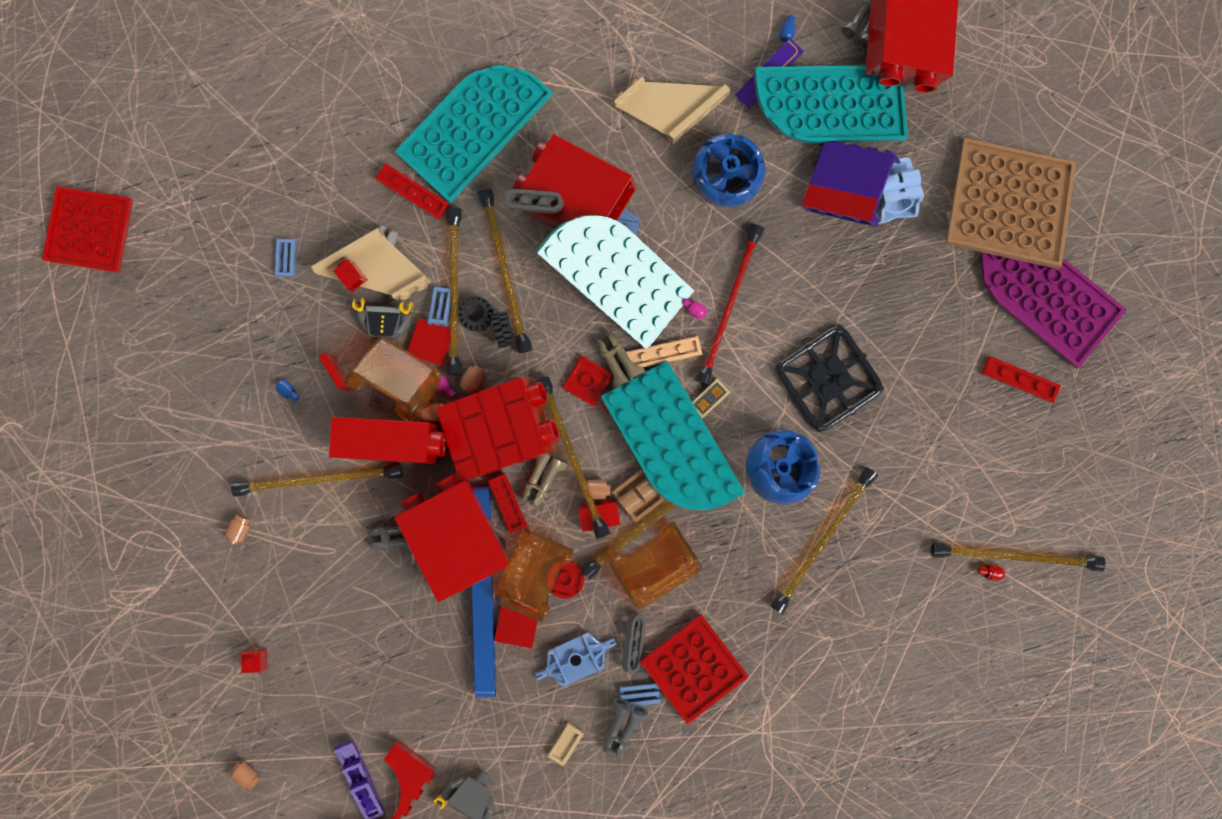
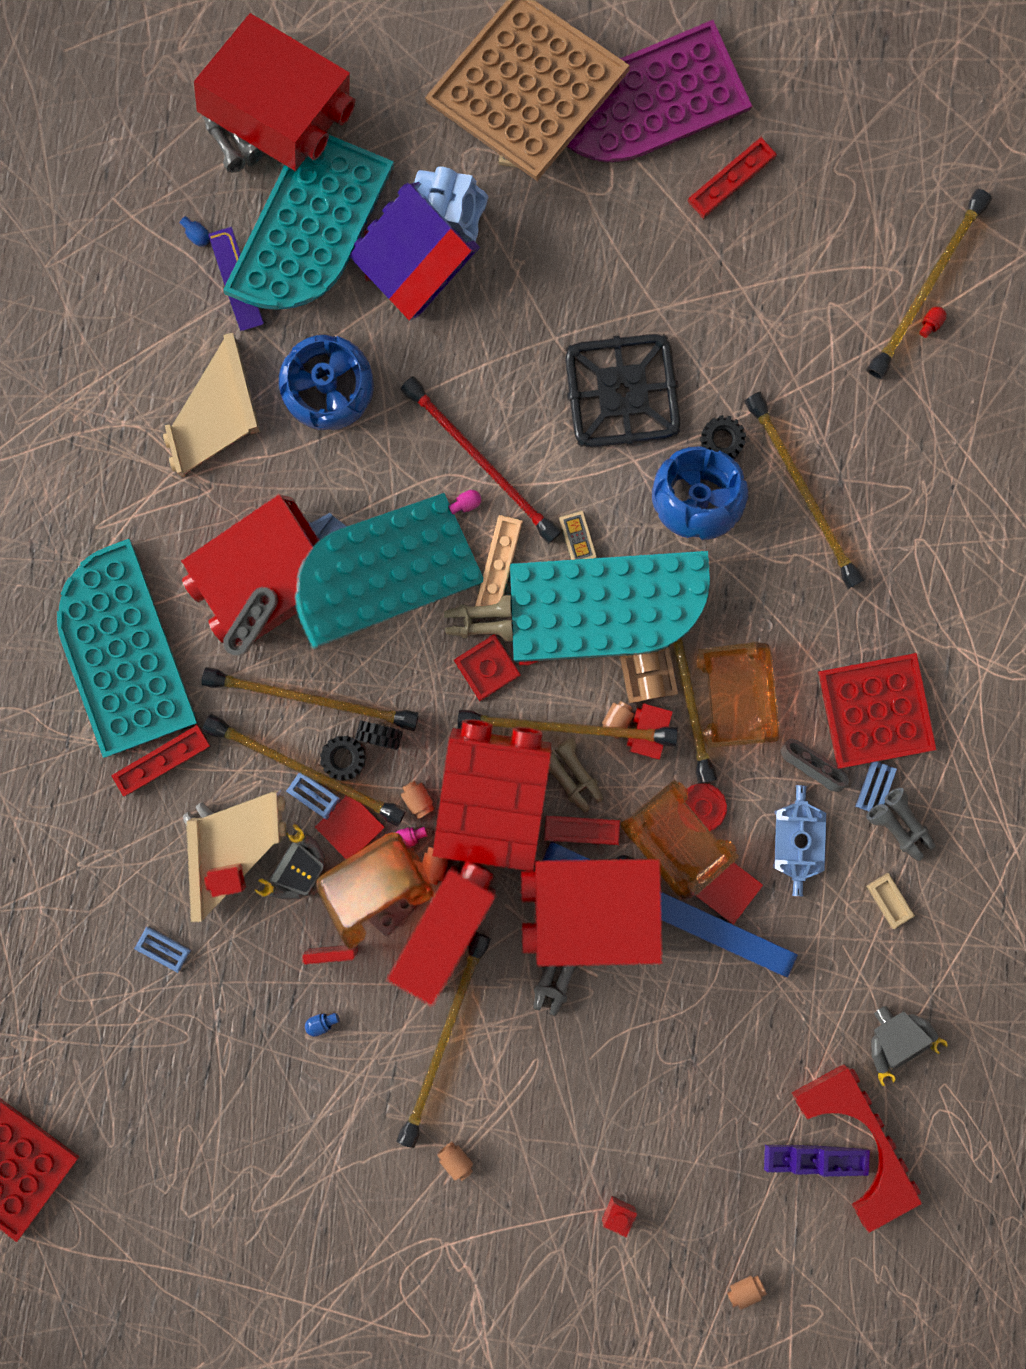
camera: 70 degrees left, 0 degrees up
(842, 464) = (728, 425): none -> black tyre

